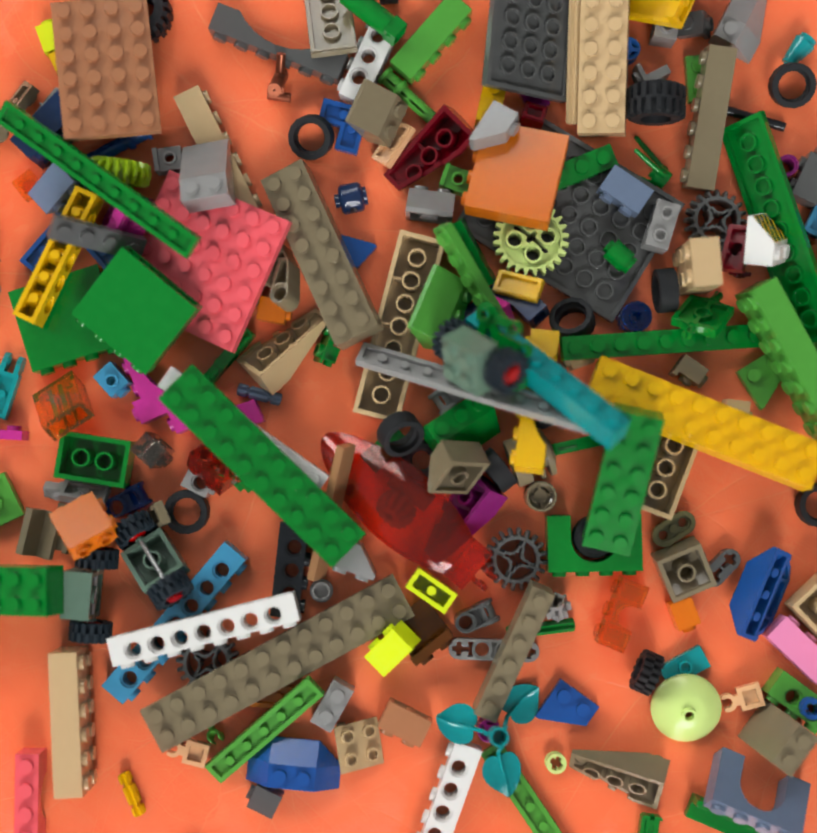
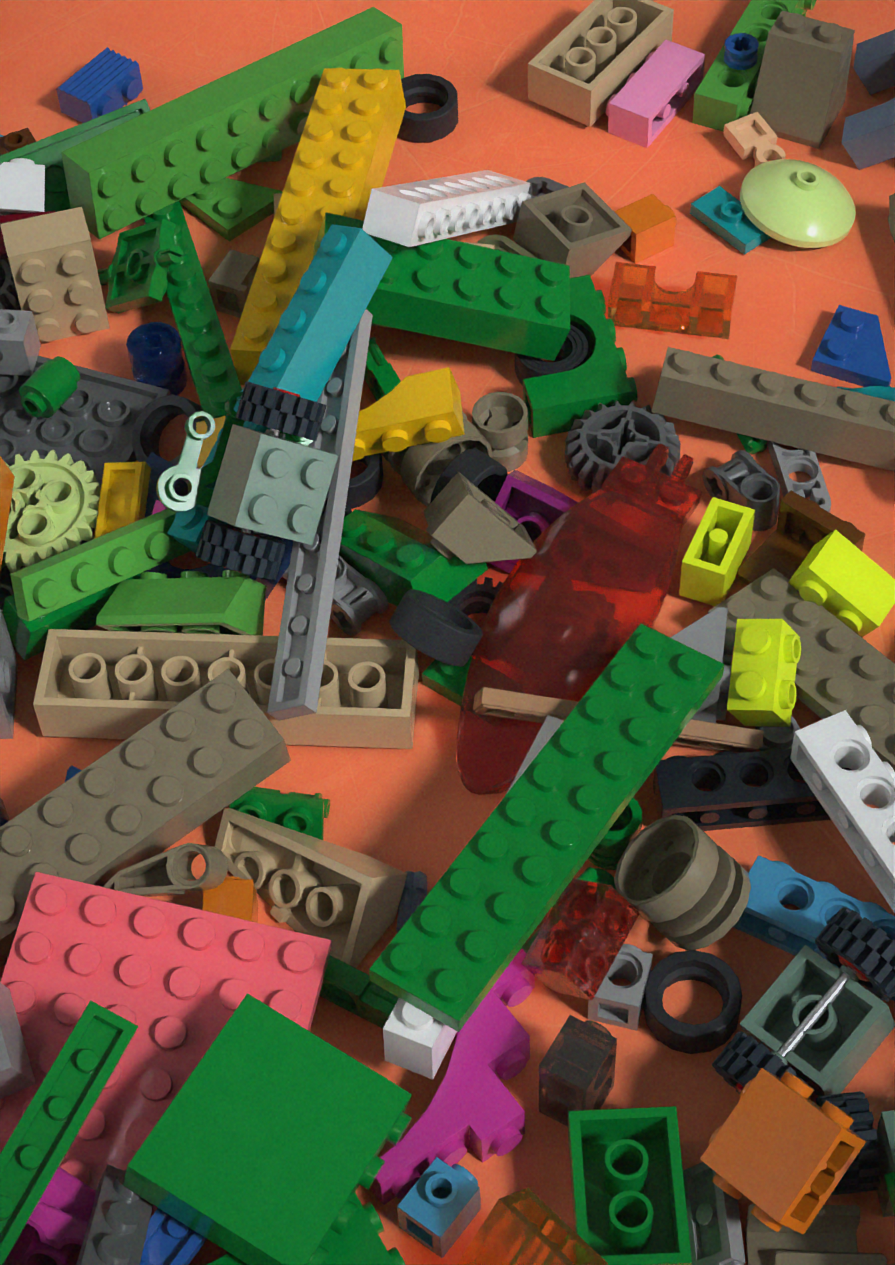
camera: 105 degrees left, 35 degrees down
(132, 499) = (699, 1110): clear blue piece -> none
(159, 514) = (709, 1026): dark tan tile -> none
(233, 519) = (683, 882): none -> dark tan wheel
(338, 589) = (764, 672): none -> neon yellow brick
(646, 672) = (759, 229): black tyre -> none
(665, 290) = (93, 304): black tyre -> none
(676, 494) = (444, 207): none -> white brick
(760, 592) = (578, 145): blue wedge -> none

